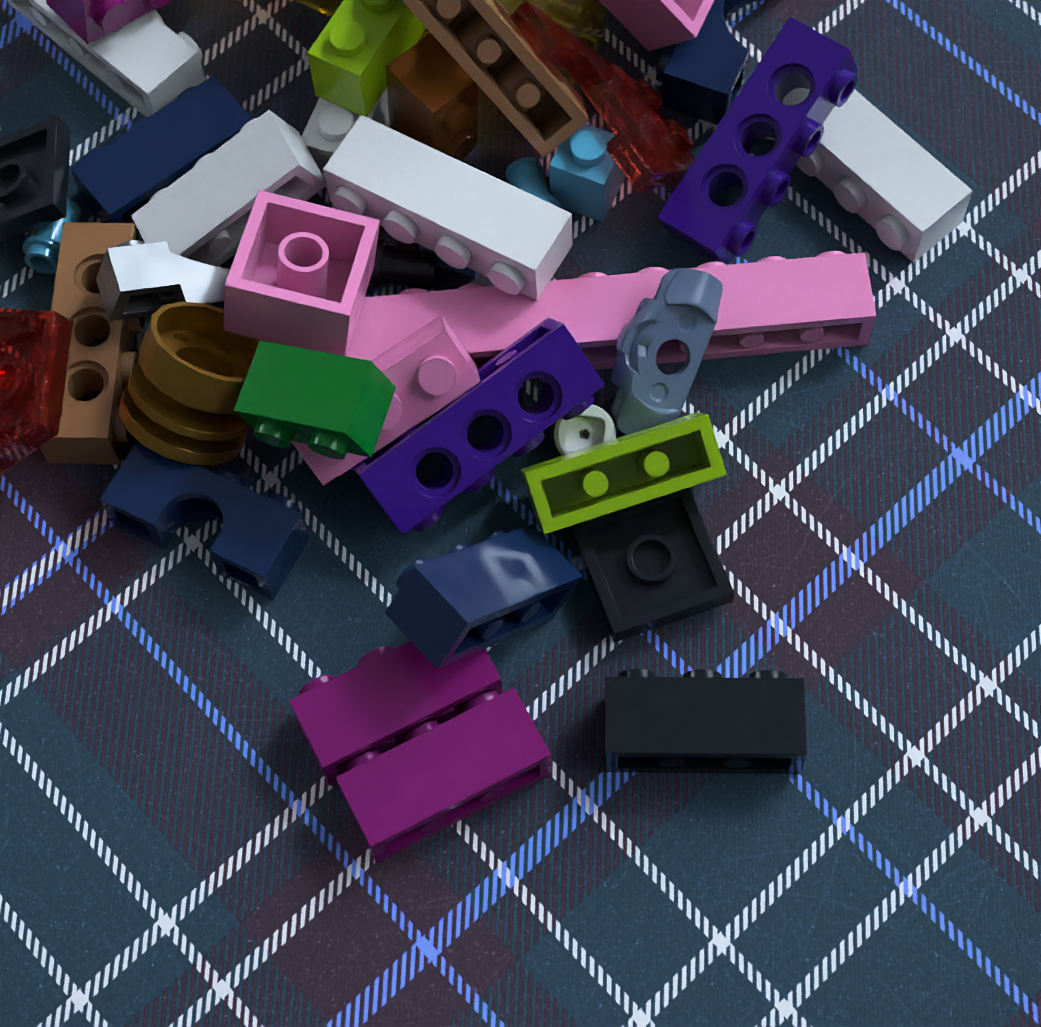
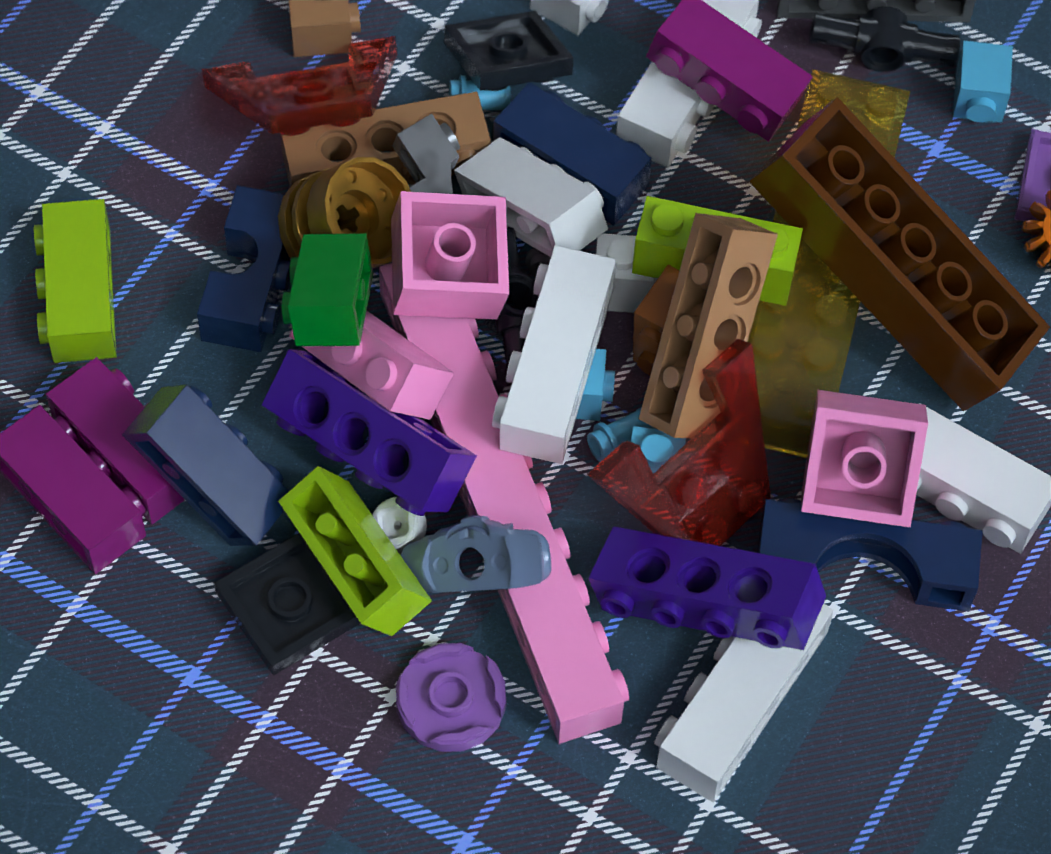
camera: 70 degrees right, 5 degrees down
(157, 714) = (76, 281): none -> lime brick
(704, 723) = (152, 668): black brick -> none
(797, 431) = (450, 697): none -> medium lavender tile

